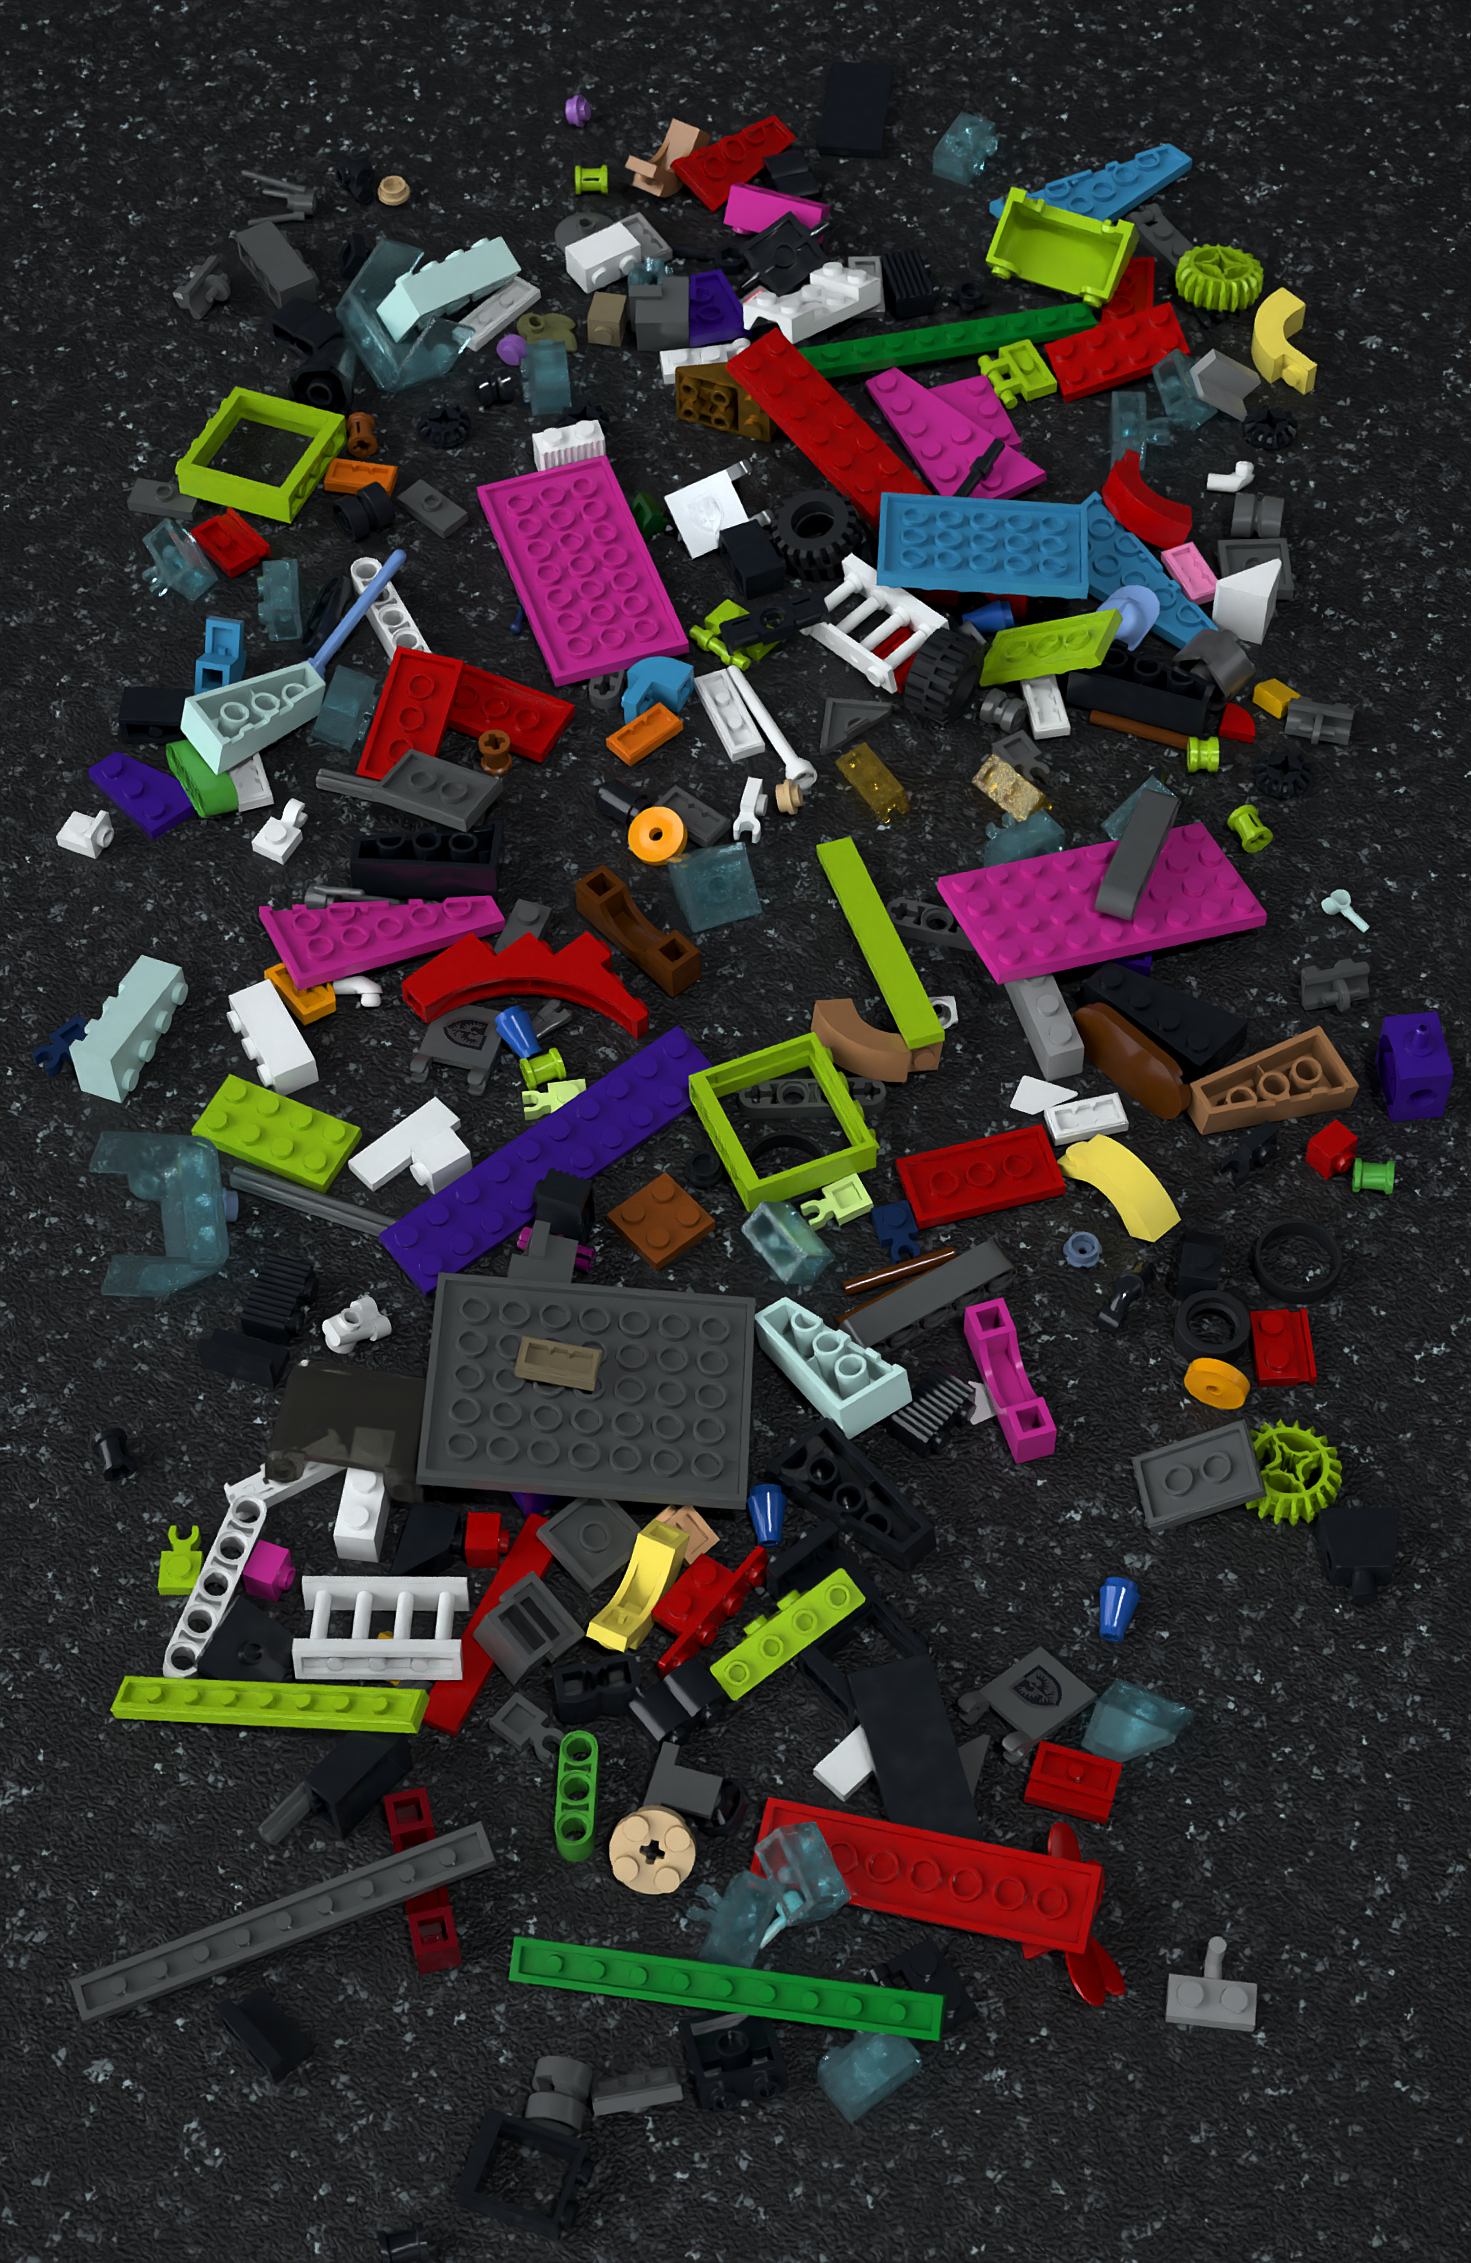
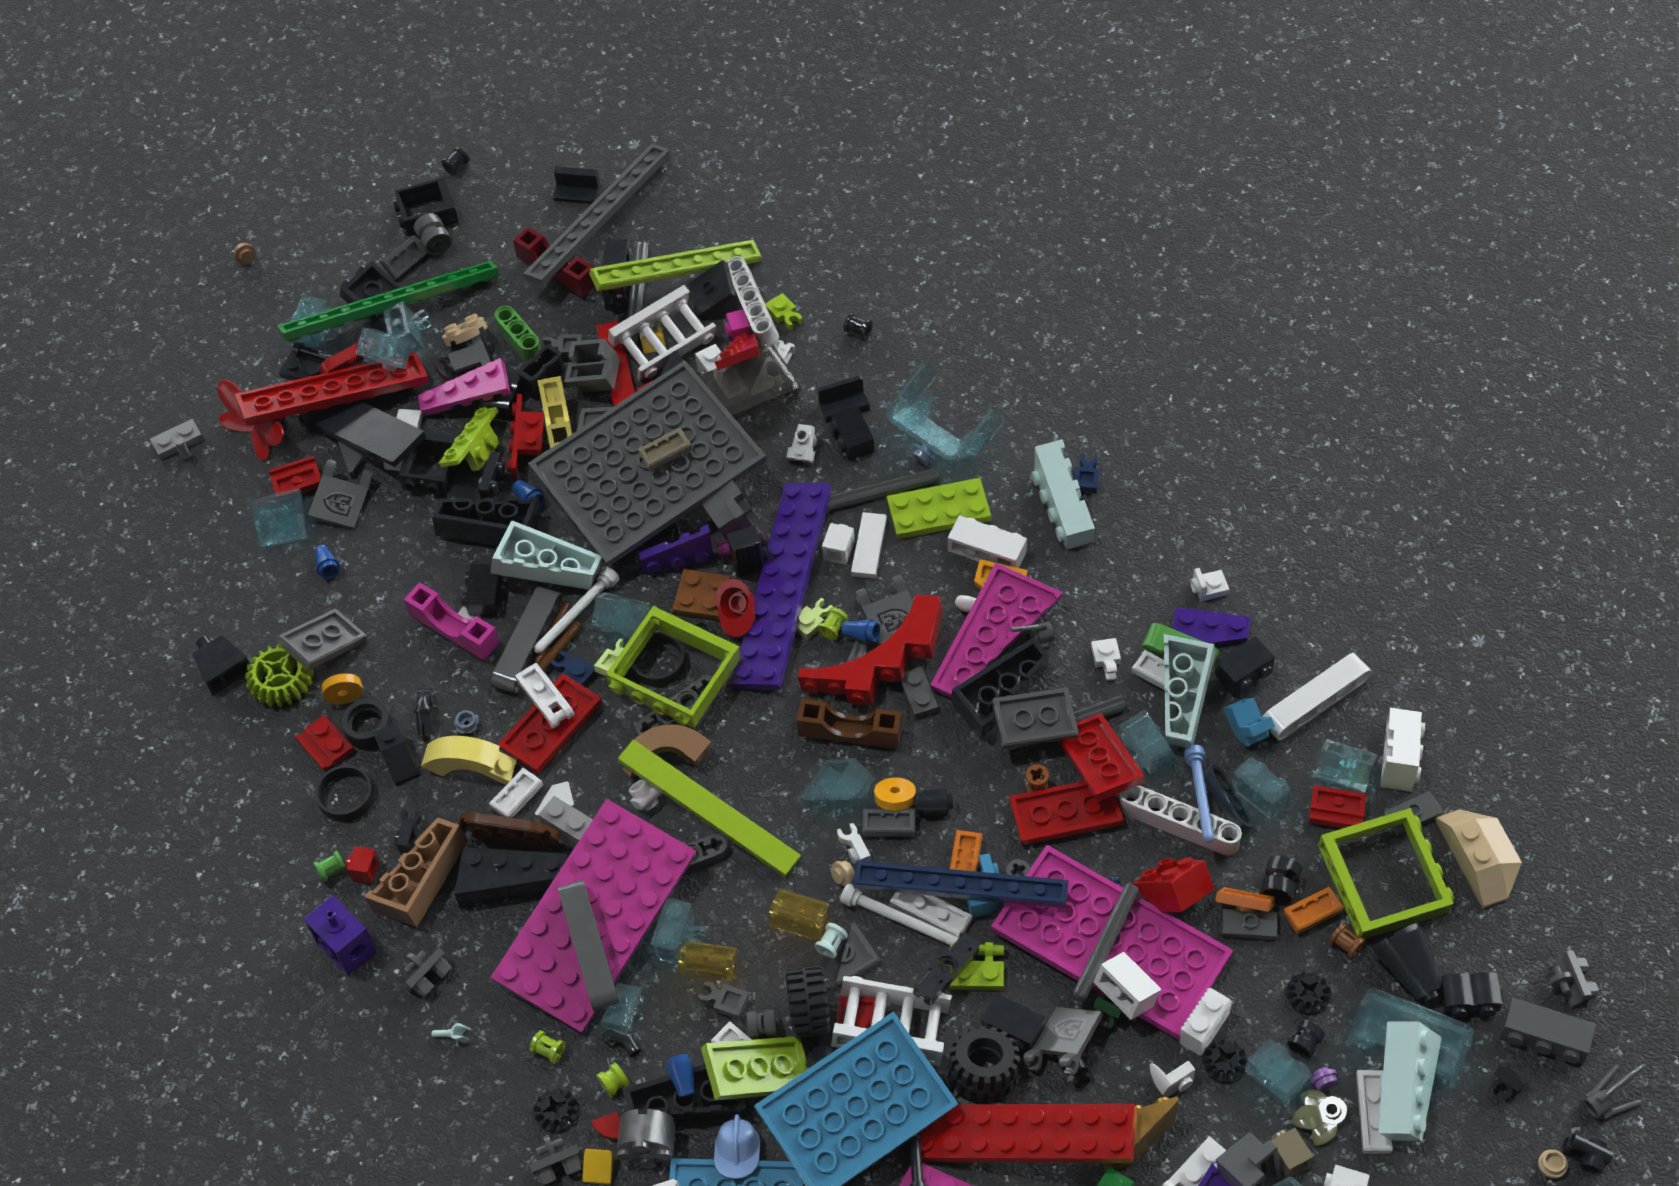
camera: 145 degrees right, 0 degrees up
(106, 539) = (1402, 750): none -> white wedge
(120, 648) = (1317, 695): none -> white beam
(147, 428) = (1482, 854): none -> tan wedge
(321, 1466) = (740, 349): none -> red wing
(417, 517) = (1245, 900): none -> orange plate
(470, 566) = (1175, 883): none -> red slope
(592, 555) = (1105, 941): none -> dark grey axle
(617, 494) = (1127, 985): none -> white brick
(629, 1267) = (683, 552): none -> dark purple wing
(640, 1153) = (735, 607): none -> red piece
(647, 428) = (1178, 1079): none -> white plate
(686, 687) = (961, 884): none -> dark blue tile
(725, 1731) = (473, 385): none -> dark pink wing
(855, 1292) = (606, 579): none -> white piece
(866, 1926) = (342, 360): none -> red beam
(871, 736) = (831, 940): none -> light aqua bush
(966, 1195) = (544, 695): none -> white plate
(1135, 672) = (681, 1073): none -> blue cone

